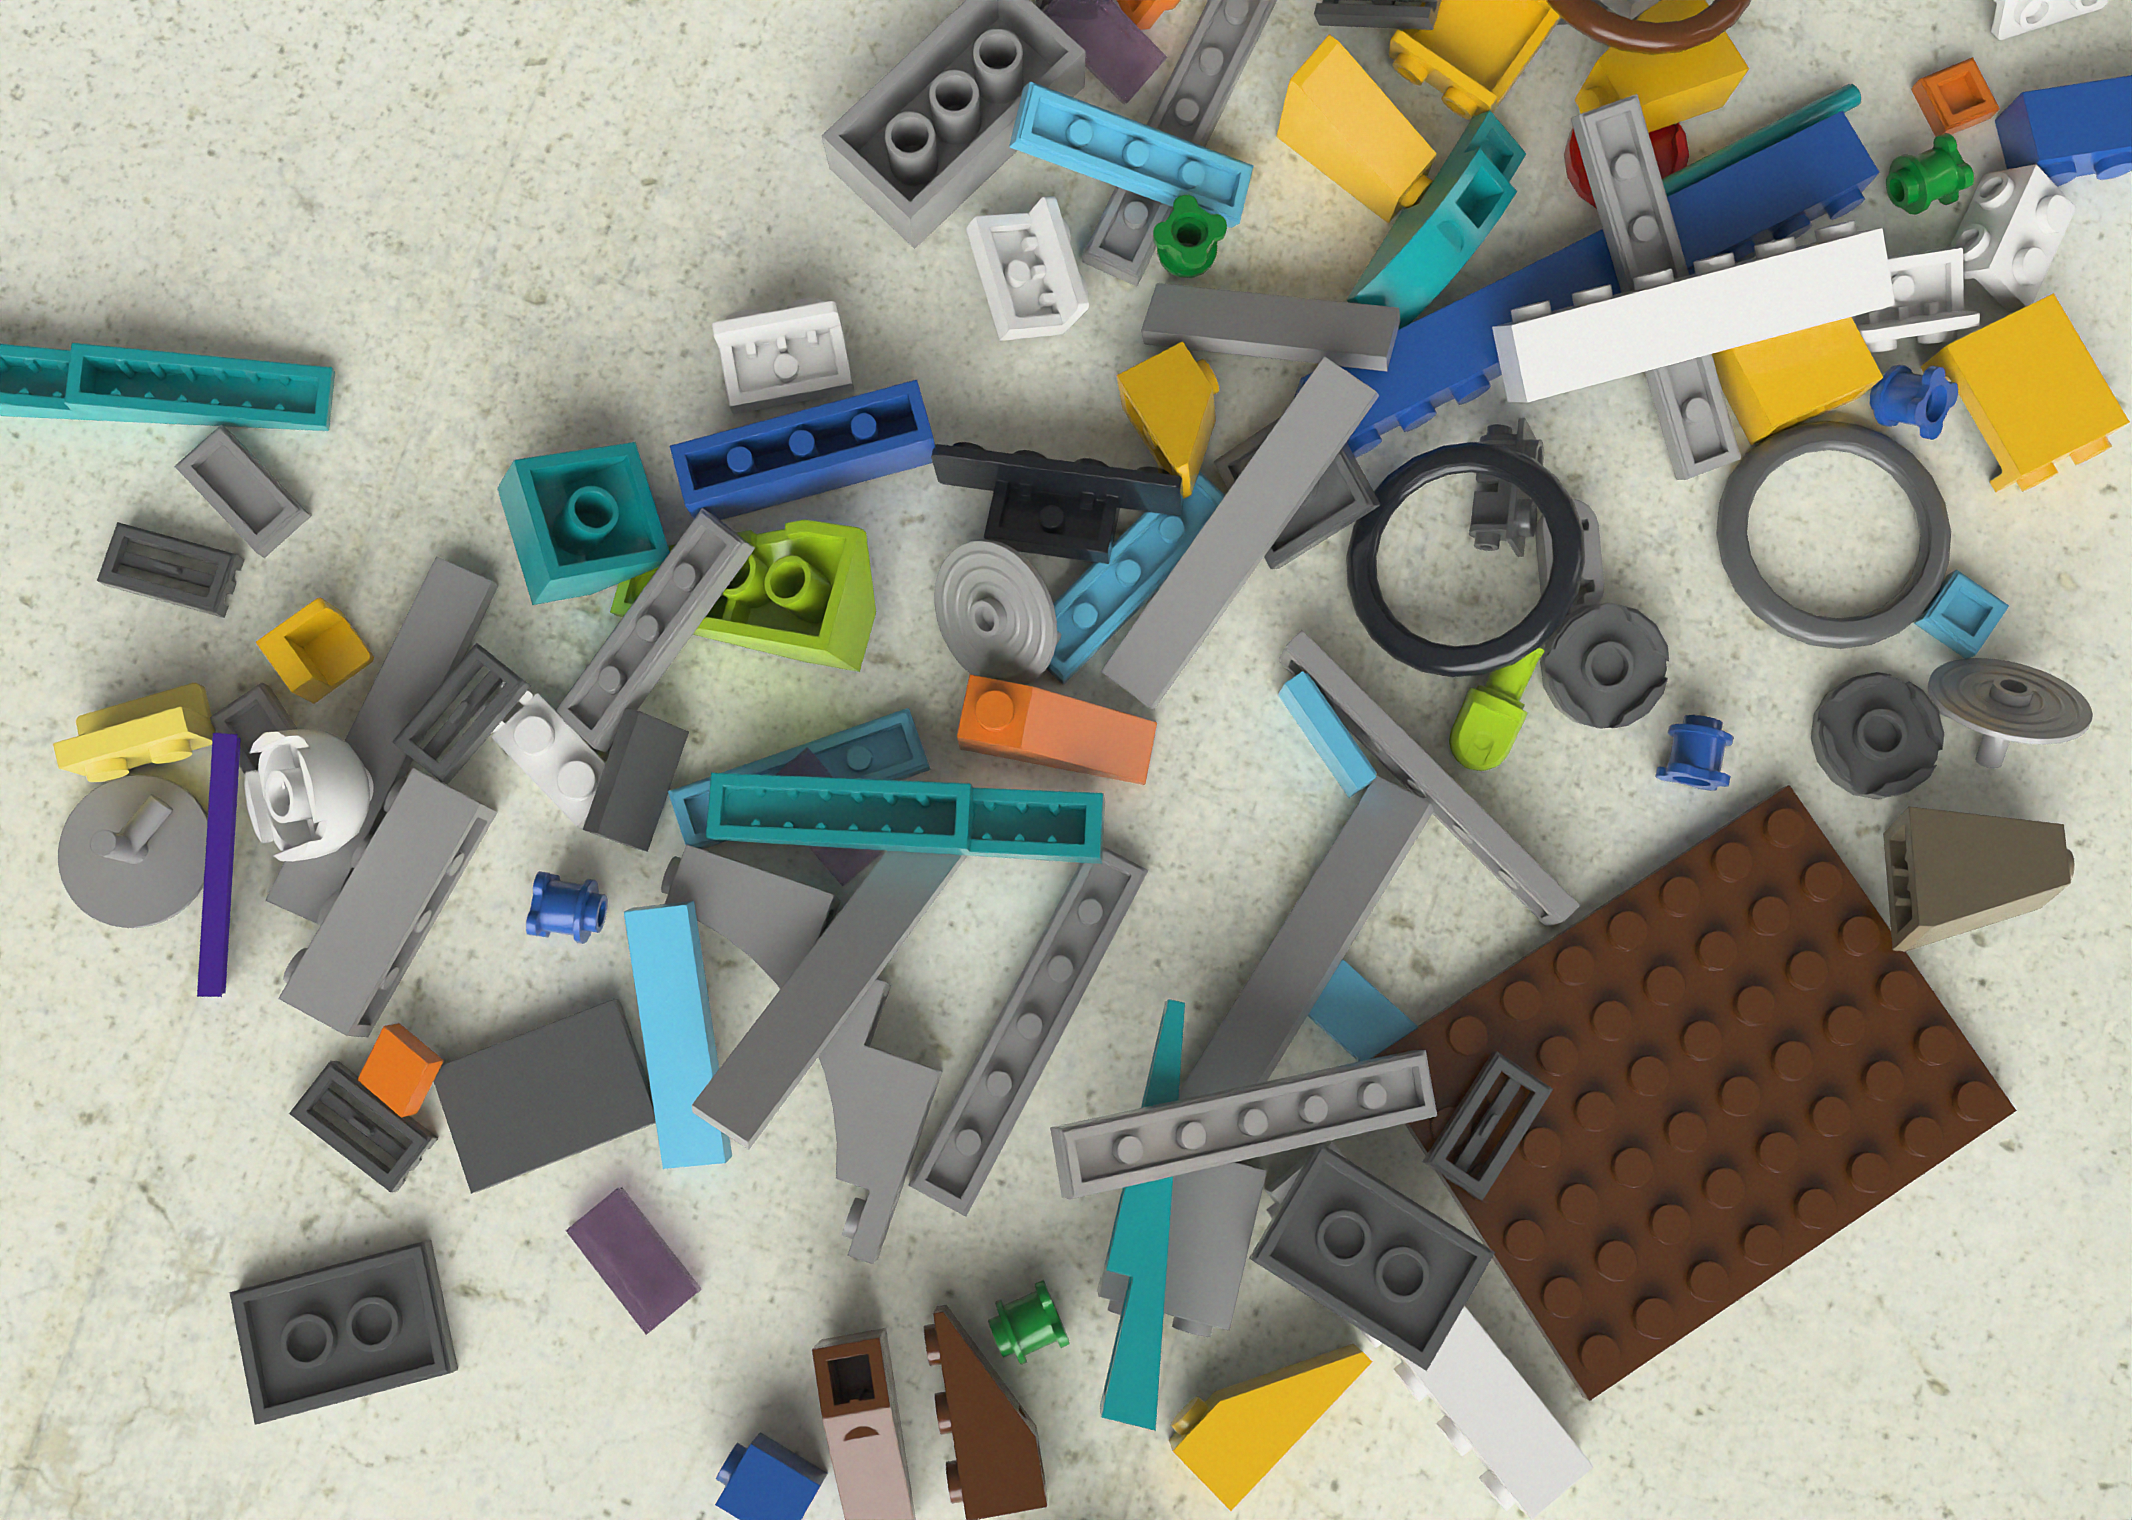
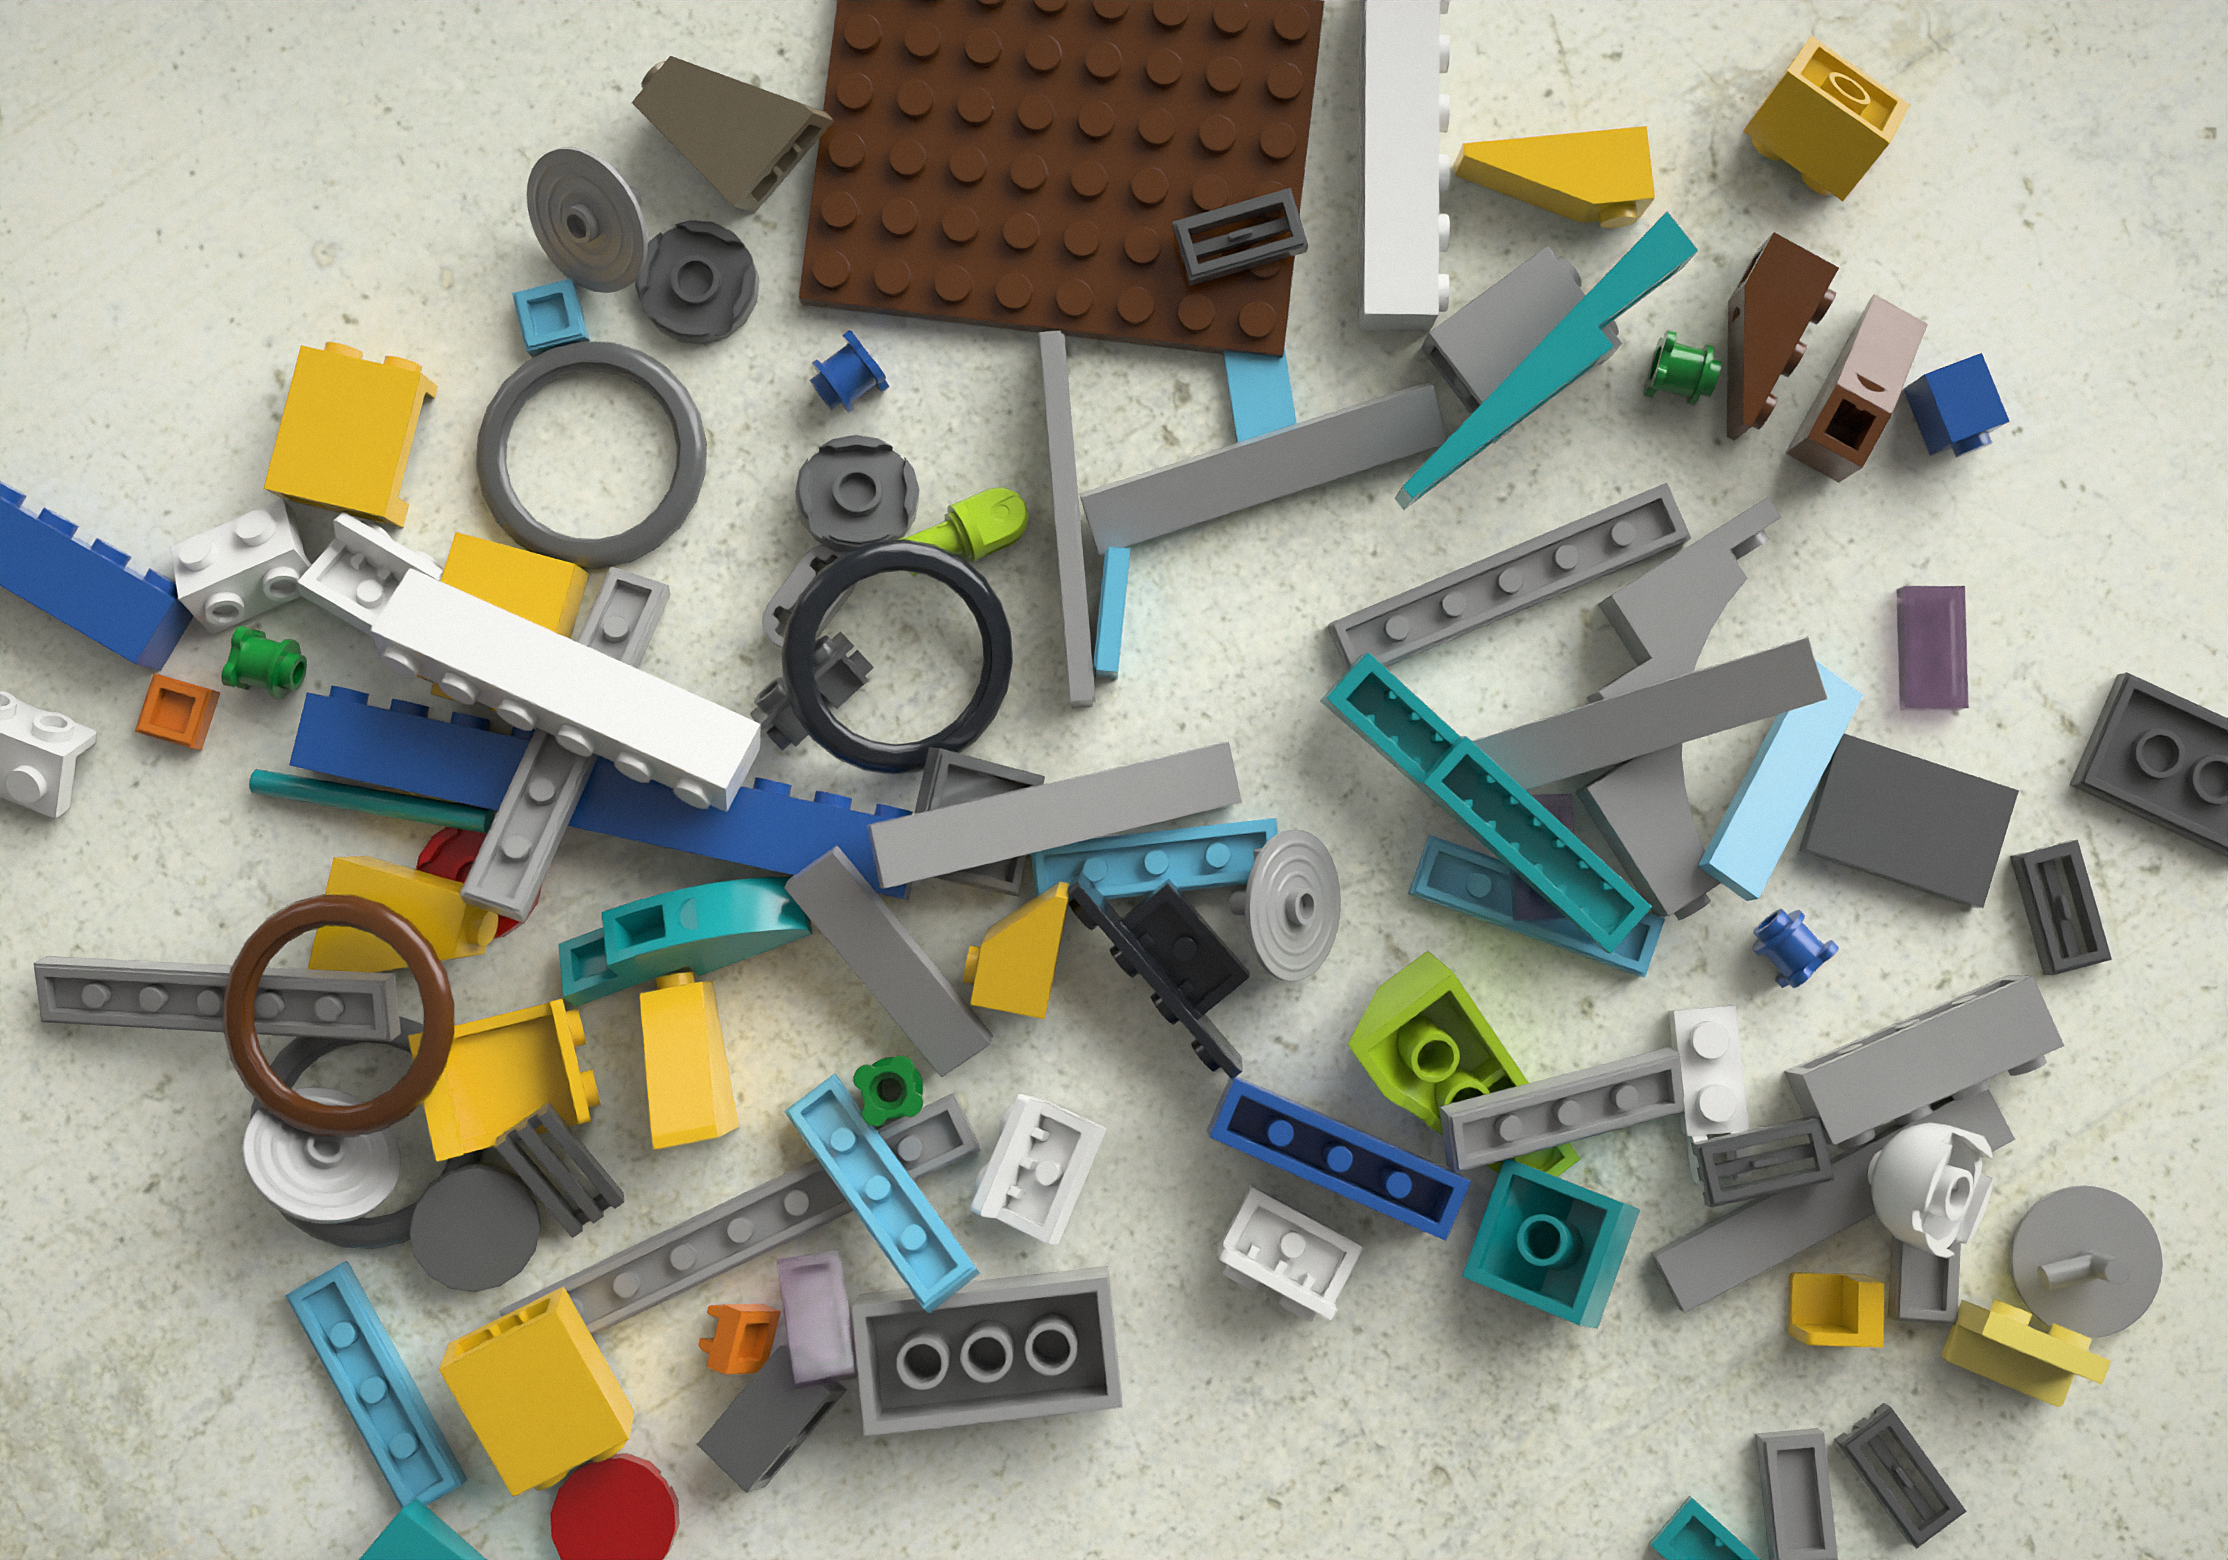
camera: 140 degrees left, 5 degrees up
(218, 865) = (2034, 1192): dark purple tile -> none
(400, 1070) = (2006, 924): orange tile -> none
(636, 780) = (1664, 1003): dark grey tile -> none
(1054, 730) = (1315, 783): orange slope -> none
(1241, 1123) = (1429, 369): light grey tile -> none
(1372, 1255) = (1405, 212): dark grey tile -> none
(1914, 399) = (441, 500): blue brick -> none

